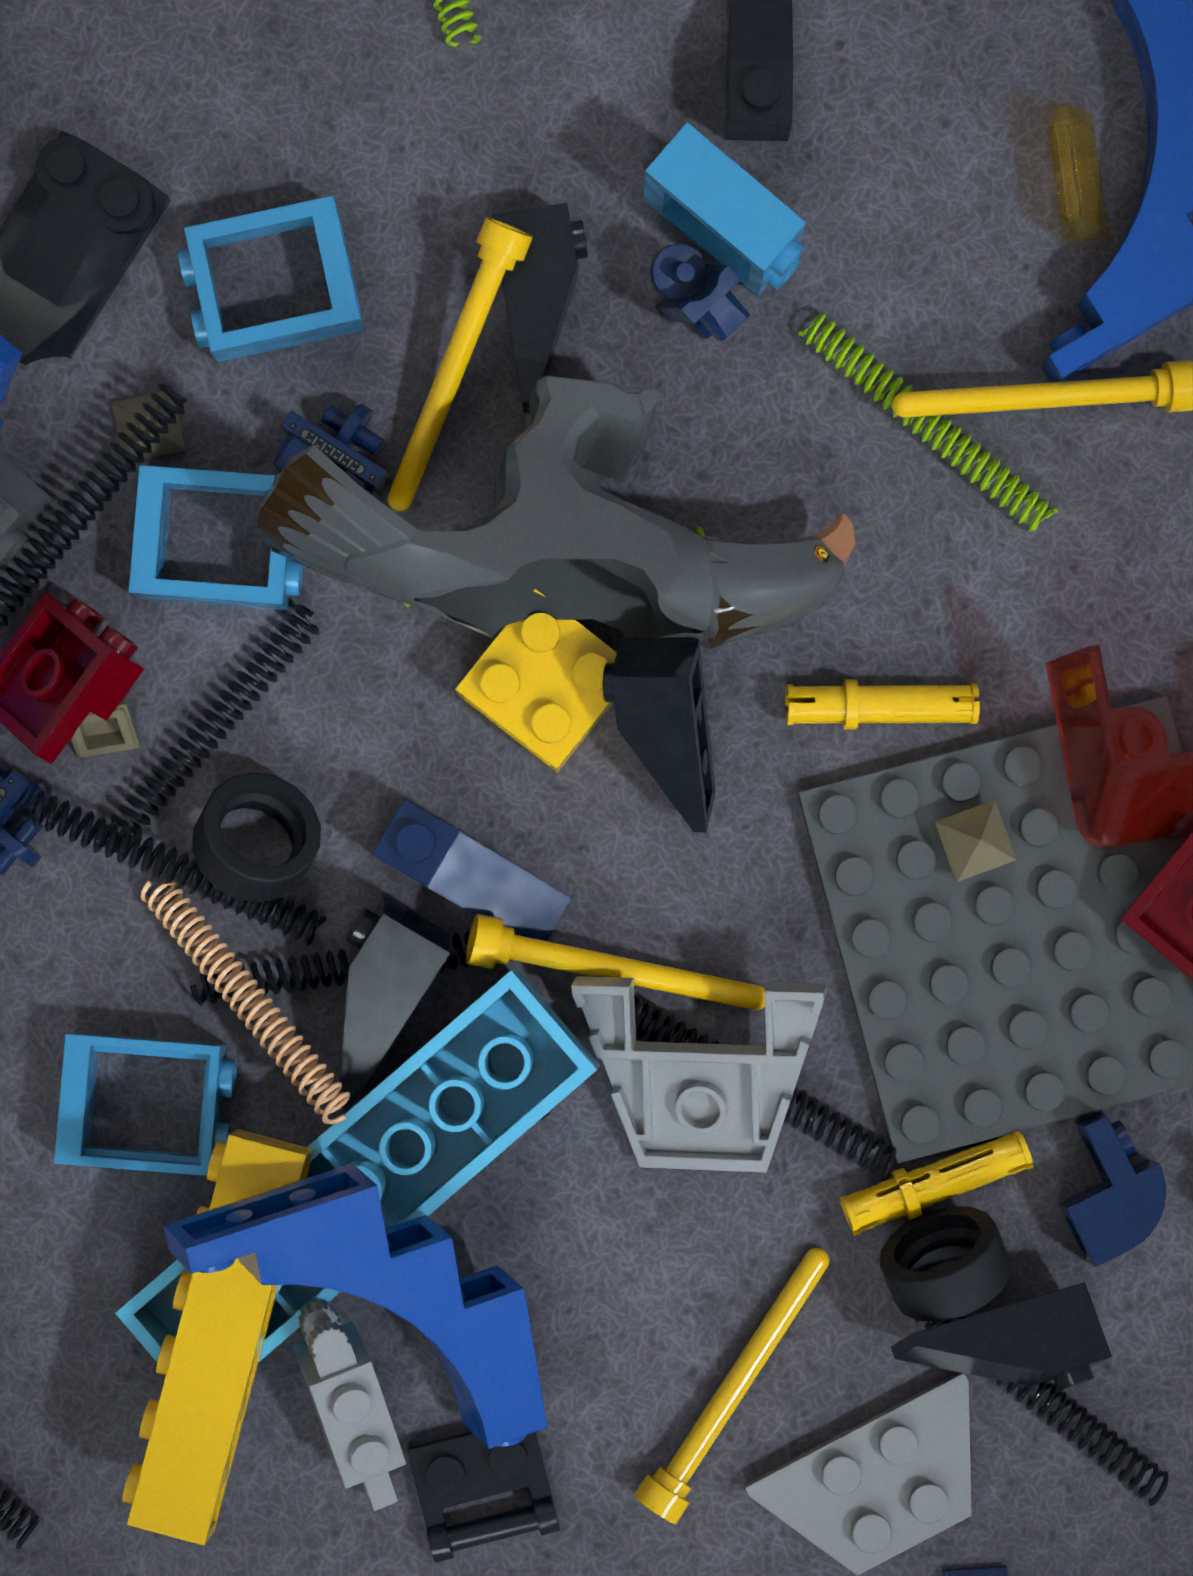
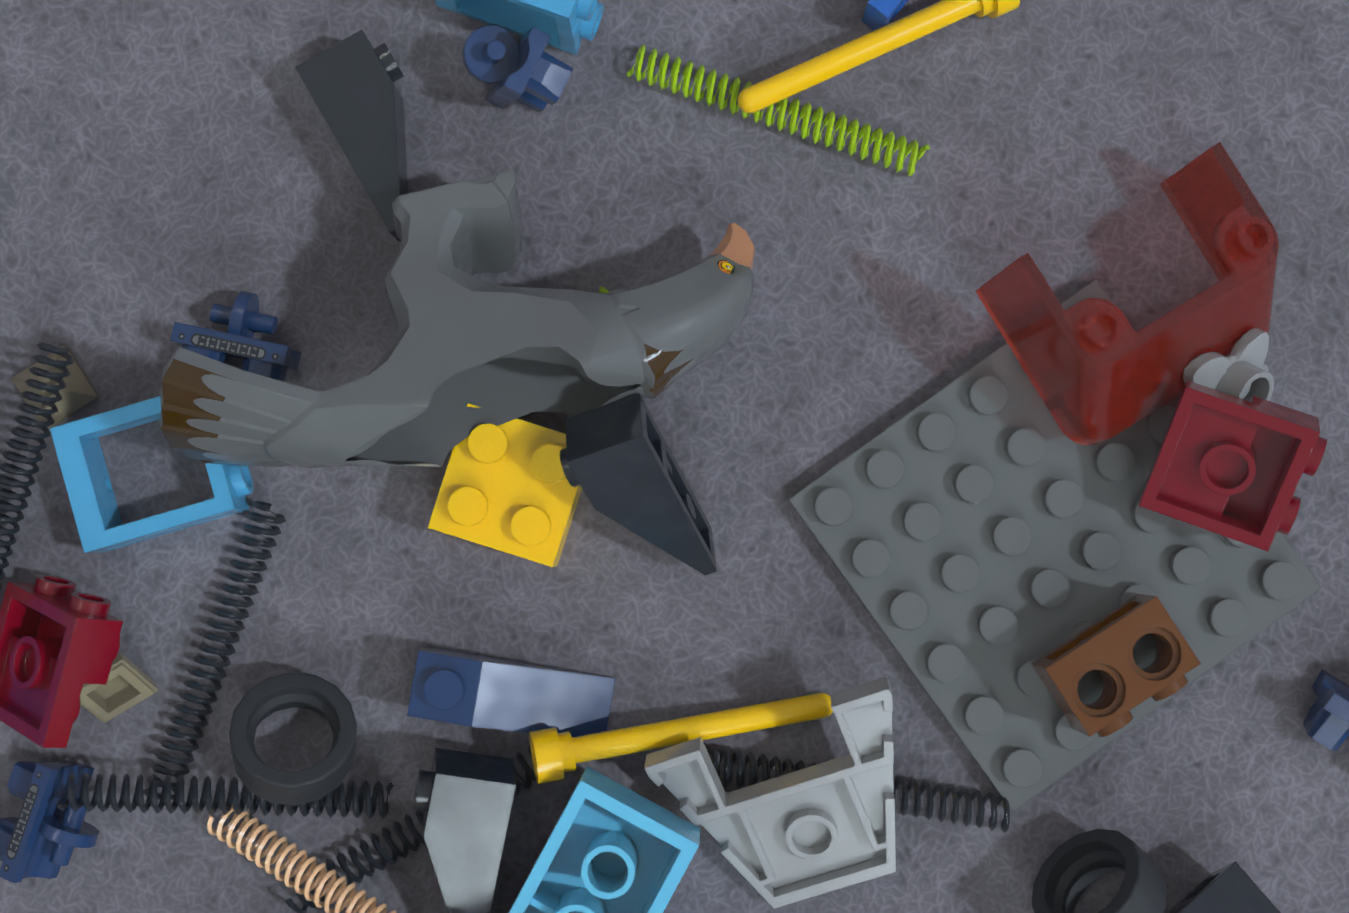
camera: 20 degrees left, 0 degrees up
(208, 322) = (192, 221): dark azure window -> none
(499, 251) = (313, 96): yellow piece -> none
(881, 704) = (830, 389): yellow pin -> none
(922, 1187) = (1055, 816): yellow pin -> none
(975, 841) = (972, 483): dark tan slope -> none
(1040, 1042) = (1109, 650): none -> reddish brown brick
(1123, 1206) = (1241, 772): dark blue brick -> none

